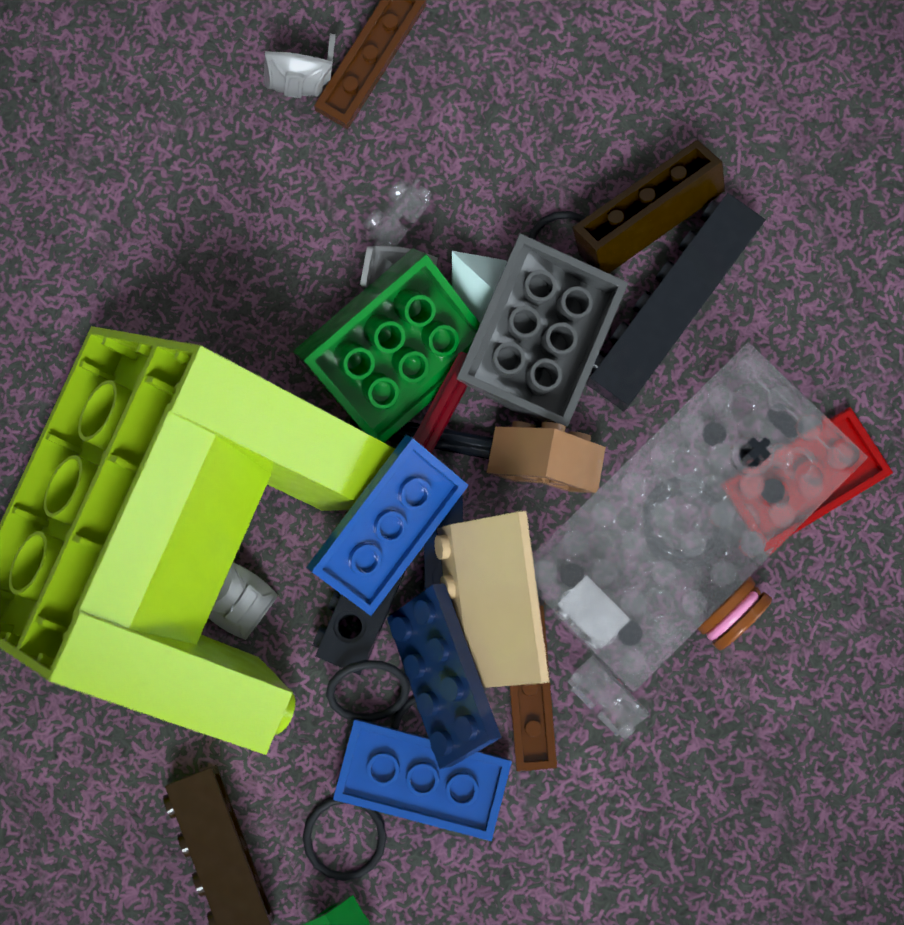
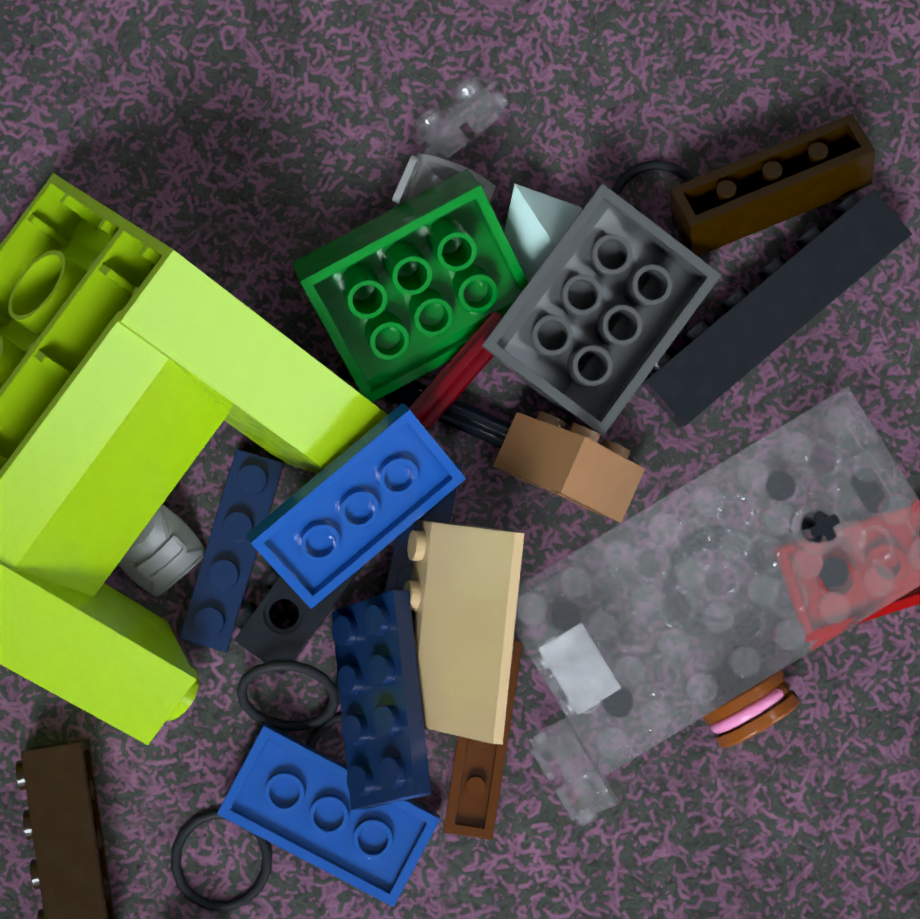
camera: 15 degrees right, 5 degrees up
(296, 589) = (229, 554): none -> dark blue plate

